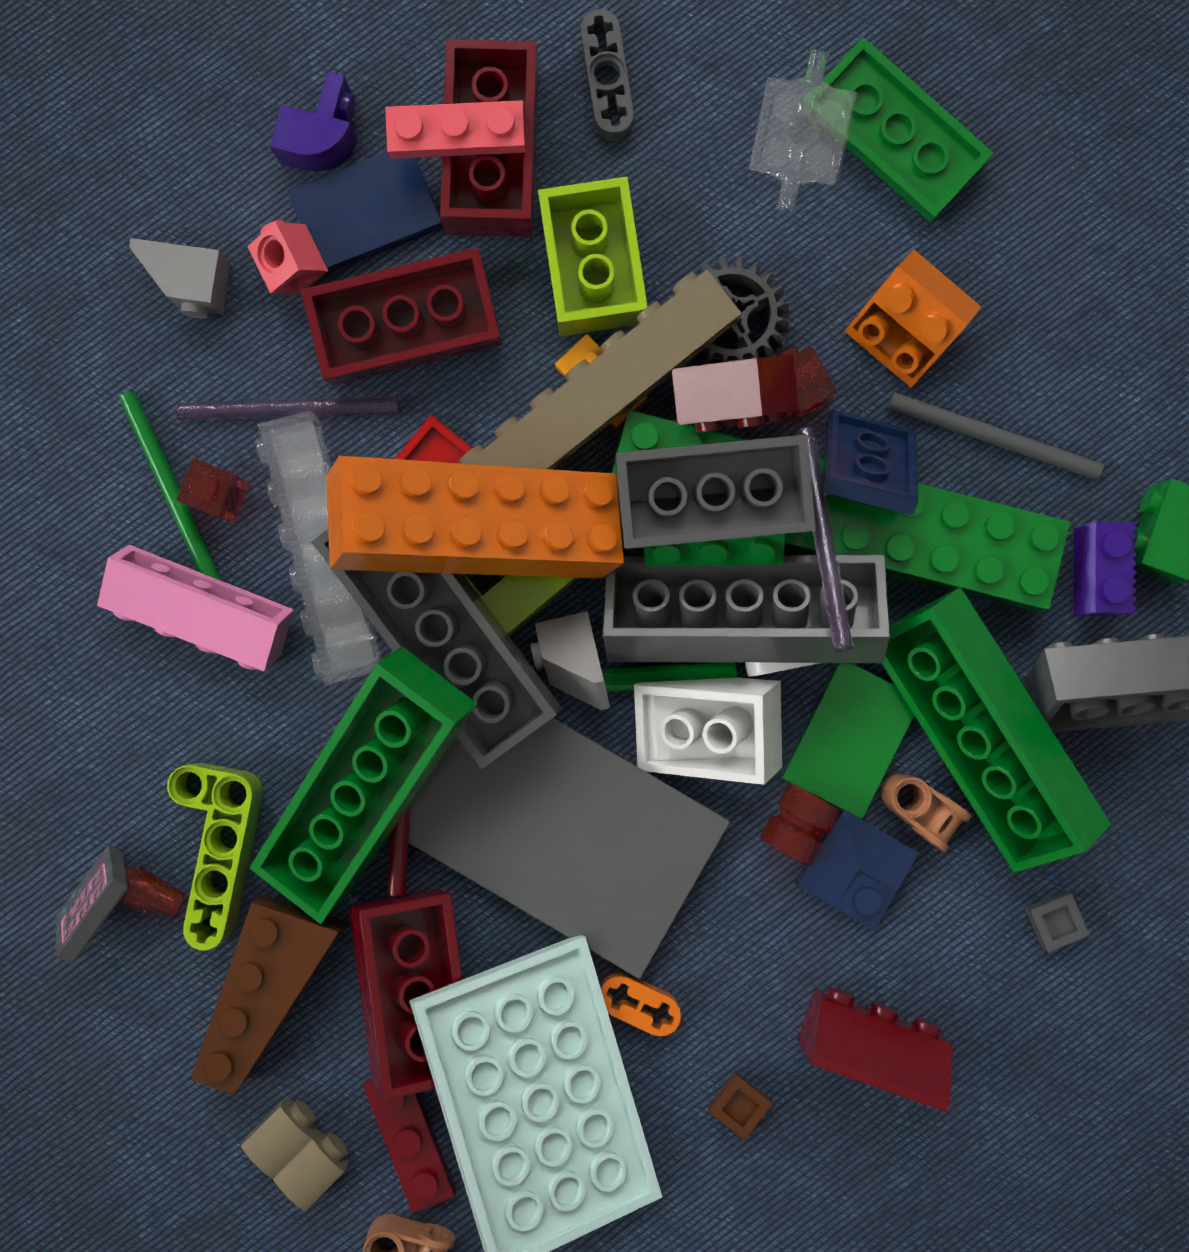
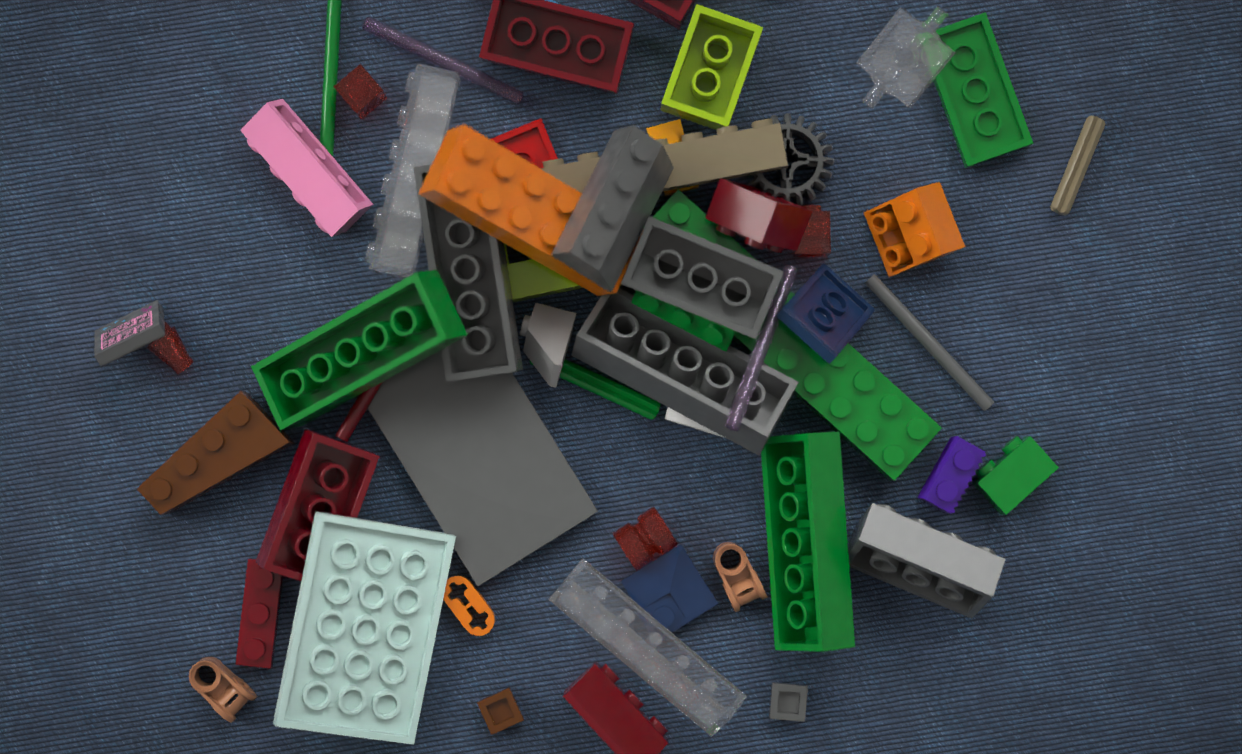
camera: 20 degrees right, 0 degrees up
(213, 853) = (228, 344): lime beam -> none
(296, 1153) = (179, 580): dark tan brick -> none
(569, 462) = (614, 206): none -> dark grey slope
(710, 728) = (618, 439): white slope -> none
(850, 739) = (712, 500): green tile -> none
(871, 947) = (647, 648): none -> clear brick
(1053, 154) = (1077, 165): none -> dark tan axle

